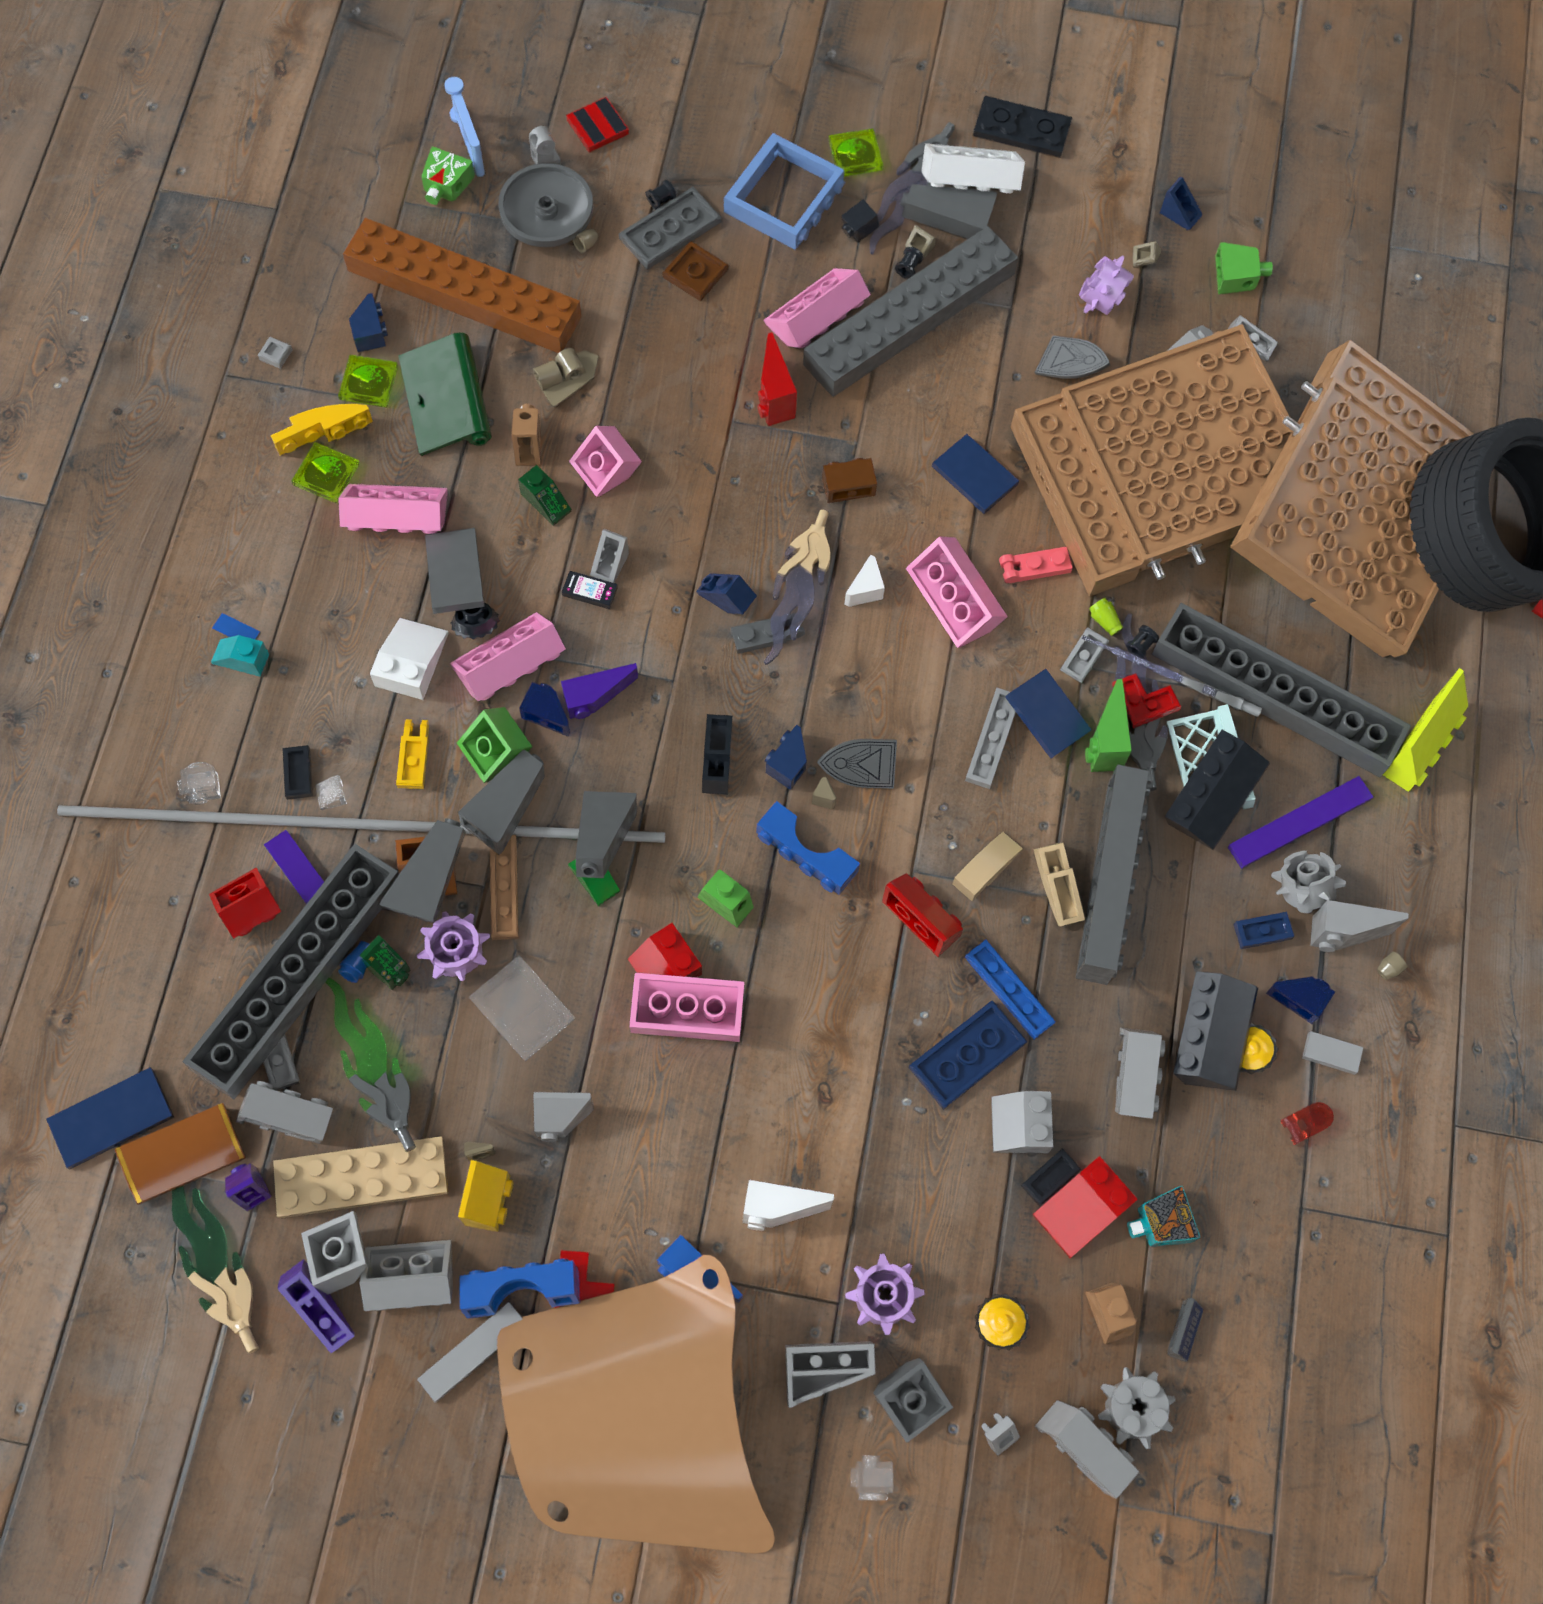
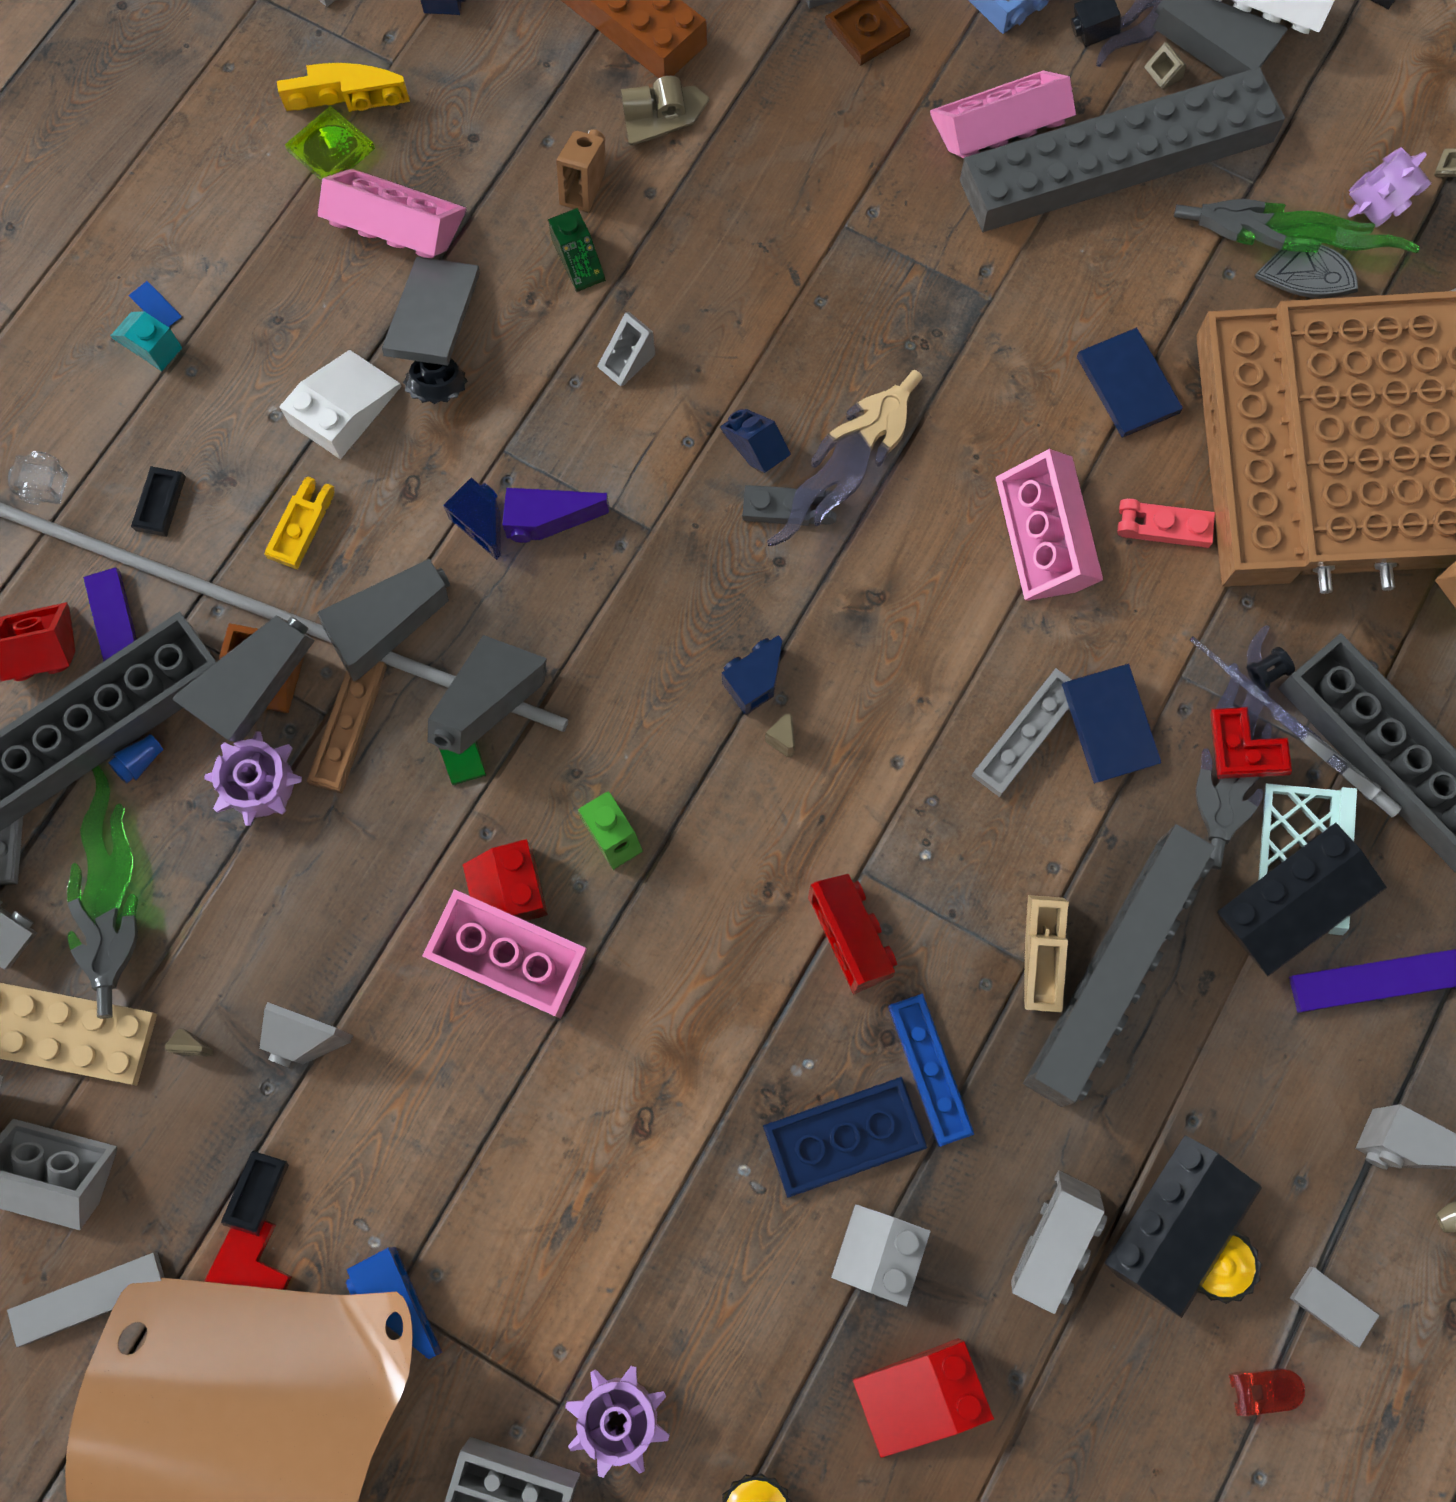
camera: 25 degrees right, 5 degrees up
(330, 793) = (187, 539): clear slope -> none
(368, 381) = (421, 50): clear neon green tile -> none
(385, 963) = (163, 772): dark green slope -> none
(450, 393) = (505, 91): door -> none
(484, 1291) = (210, 1253): blue arch -> none
(485, 1197) = (168, 1110): yellow slope -> none
(492, 742) = (399, 536): bright green slope -> none
(508, 656) = (457, 438): bright pink slope -> none
(522, 1008) = (310, 883): clear piece -> none
(567, 1233) = (254, 1193): none -> black tile
(589, 589) = (589, 384): tile -> none
(604, 460) = (667, 227): bright pink slope -> none
(717, 754) = (667, 641): black slope -> none
(777, 390) = (910, 197): red slope -> none
(777, 1204) = (514, 1250): white slope -> none
(832, 868) = (759, 835): blue arch -> none
(849, 480) = (963, 342): reddish brown brick -> none
(862, 762) = (845, 711): dark grey shield -> none
(866, 586) = (935, 483): white slope -> none
(909, 262) = (1142, 87): black bush -> none
(986, 866) = (958, 897): tan slope -> none
(1050, 1177) = (893, 1339): black tile -> none
(1053, 333) = (1291, 231): none -> piece
(1084, 656) = (1186, 662): light grey slope -> none
(1106, 616) = (1234, 619): lime cone -> none
(1111, 738) = (1181, 787): bright green slope -> none
(1165, 1220) = (1024, 1456): torso -> none
(1263, 930) = (1298, 1107): dark blue plate -> none
(1303, 996) = (1323, 1218): clear blue slope -> none
(1308, 880) = (1384, 1064): light grey brick -> none

